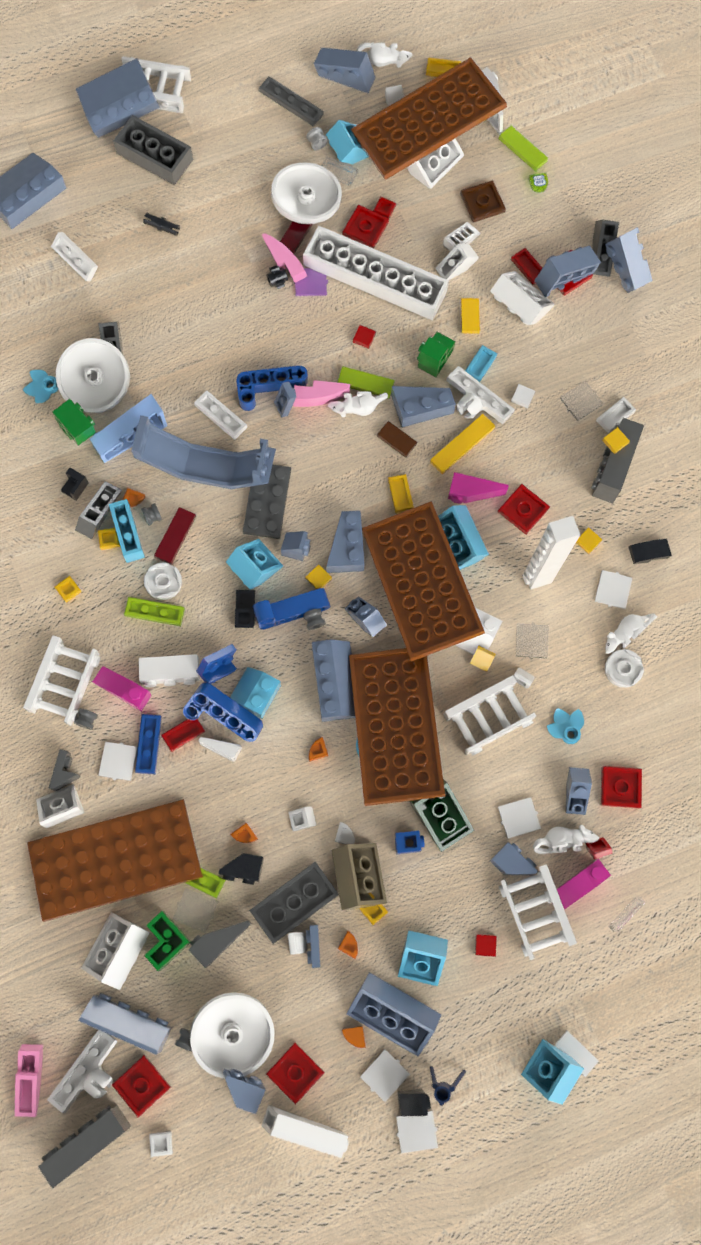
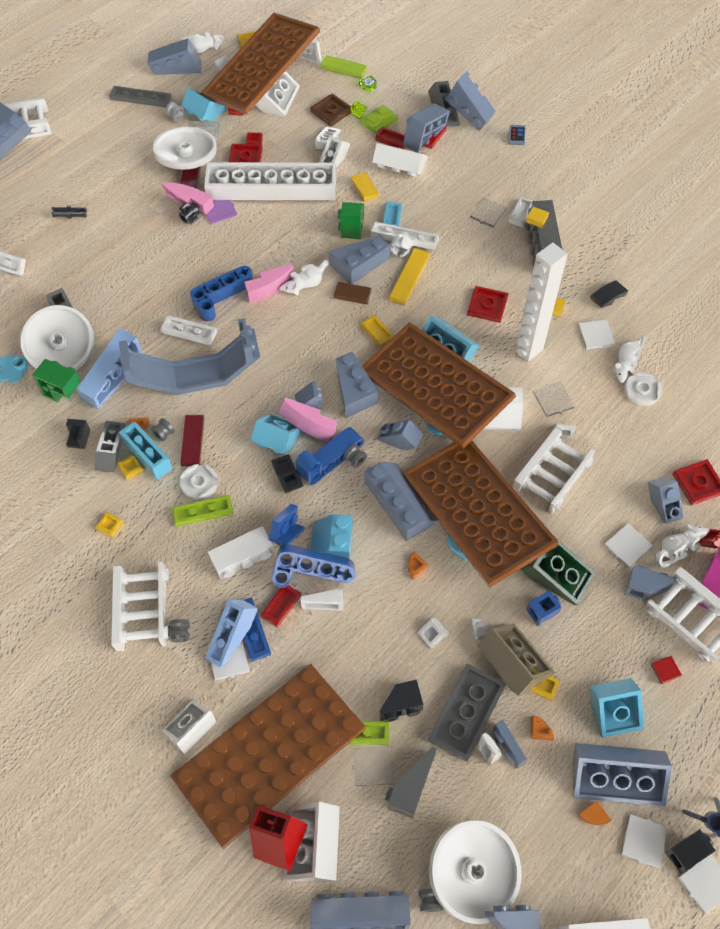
camera: 20 degrees left, 15 degrees down
(60, 776) = (178, 694): dark grey slope -> none
(88, 933) = (276, 837): none -> red slope
(122, 688) = (203, 587): dark pink slope -> none
(127, 740) = (230, 630): none -> light blue slope
(153, 150) = (38, 161): dark grey brick -> none
(171, 941) = (364, 802): green brick -> none
(244, 834) = (386, 671): orange tile -> none
(267, 505) = (265, 383): dark grey plate -> none
(285, 399) = (241, 294): sand blue plate -> none
(286, 565) = (308, 419): none -> bright pink slope
(295, 1073) = (556, 882): red tile -> none
(318, 577) = (343, 421): yellow tile -> none
(364, 336) = (285, 230): red tile -> none
(365, 381) = (301, 260): lime tile -> none
(470, 489) = (439, 302): dark pink slope -> none
(482, 658) = (521, 427): yellow tile -> none
(510, 214) = (358, 110): none -> clear neon green tile
(523, 396) = (439, 225): white tile -> none
(527, 235) = (379, 118): none -> lime plate
(566, 723) = (622, 451): medium azure plate -> none
(662, 317) = (517, 134): none -> slope

